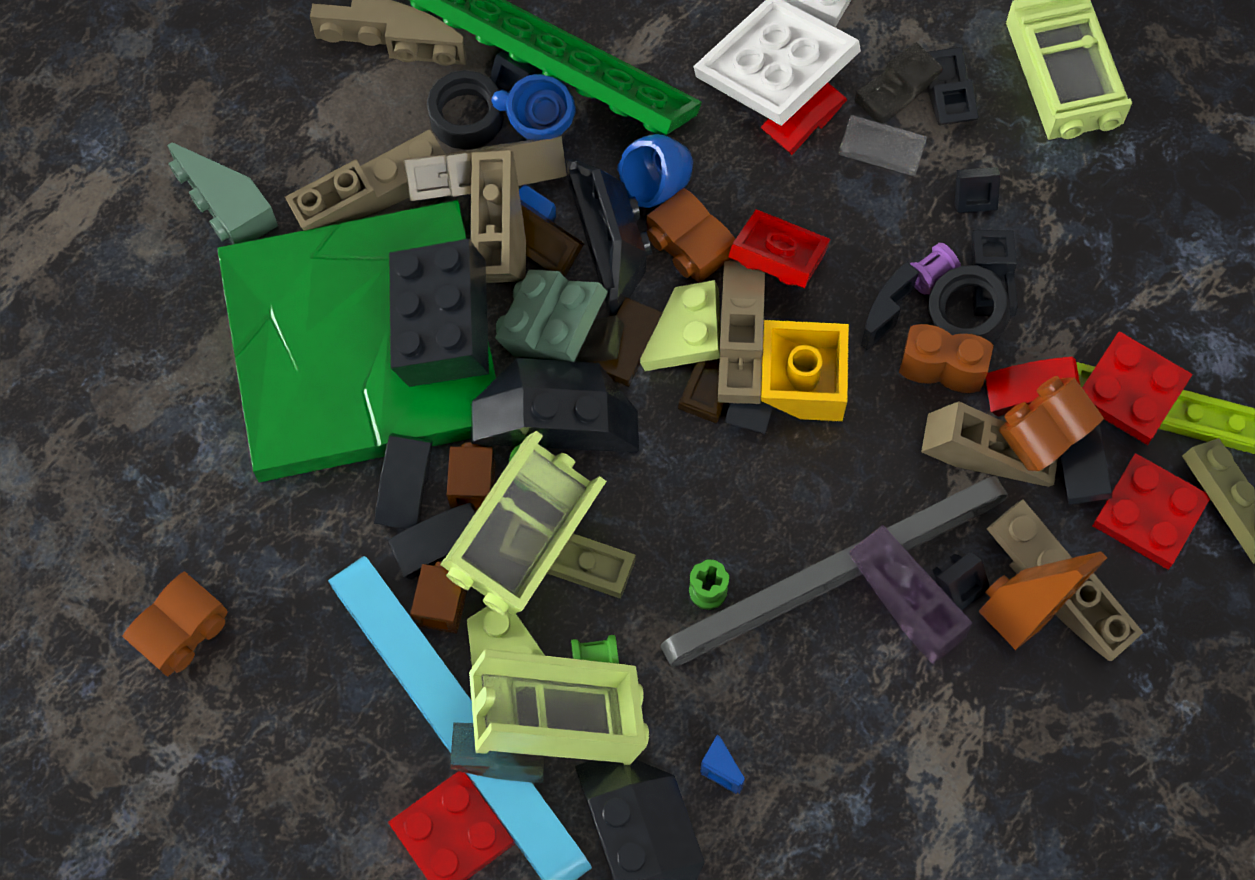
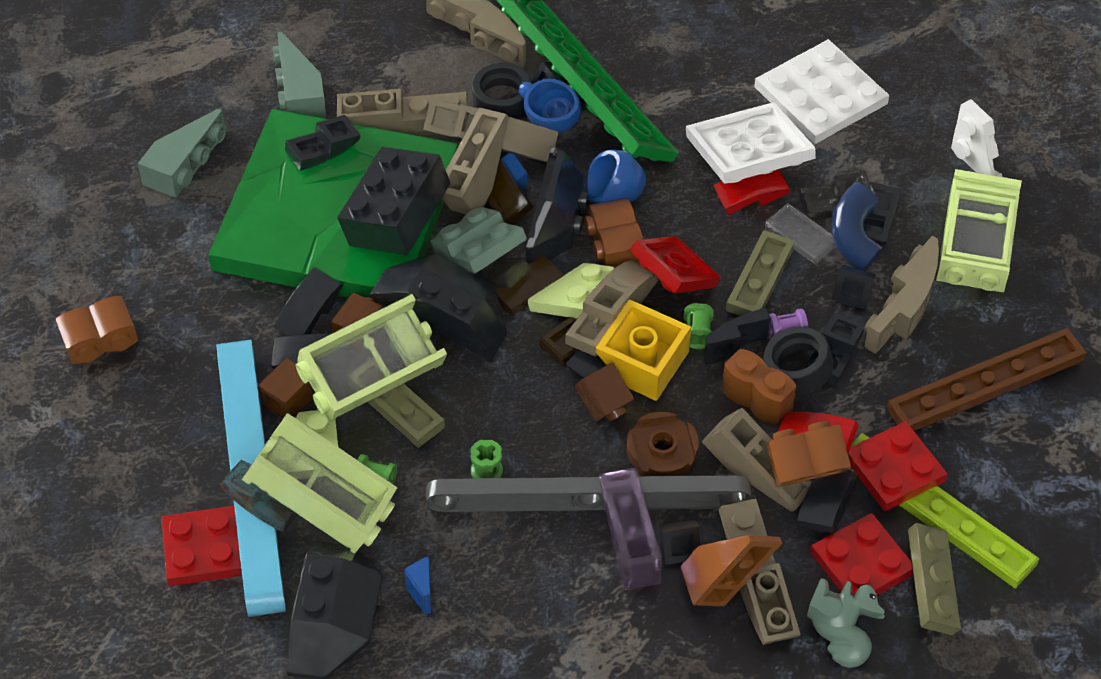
camera: 25 degrees right, 15 degrees down
(137, 357) = (177, 156): none -> sand green slope
(307, 268) = (328, 141): none -> black slope
(790, 441) = (604, 393): none -> reddish brown brick
(840, 308) = (699, 318): none -> bright green bush
(871, 218) = (760, 273): none -> olive plate
(882, 451) = (655, 462): none -> reddish brown plate
(938, 121) = (849, 229): none -> dark blue cylinder
(1040, 172) = (908, 299): none -> dark tan slope
(1166, 242) = (987, 380): none -> reddish brown plate
(1166, 593) = (835, 620): none -> sand green animal

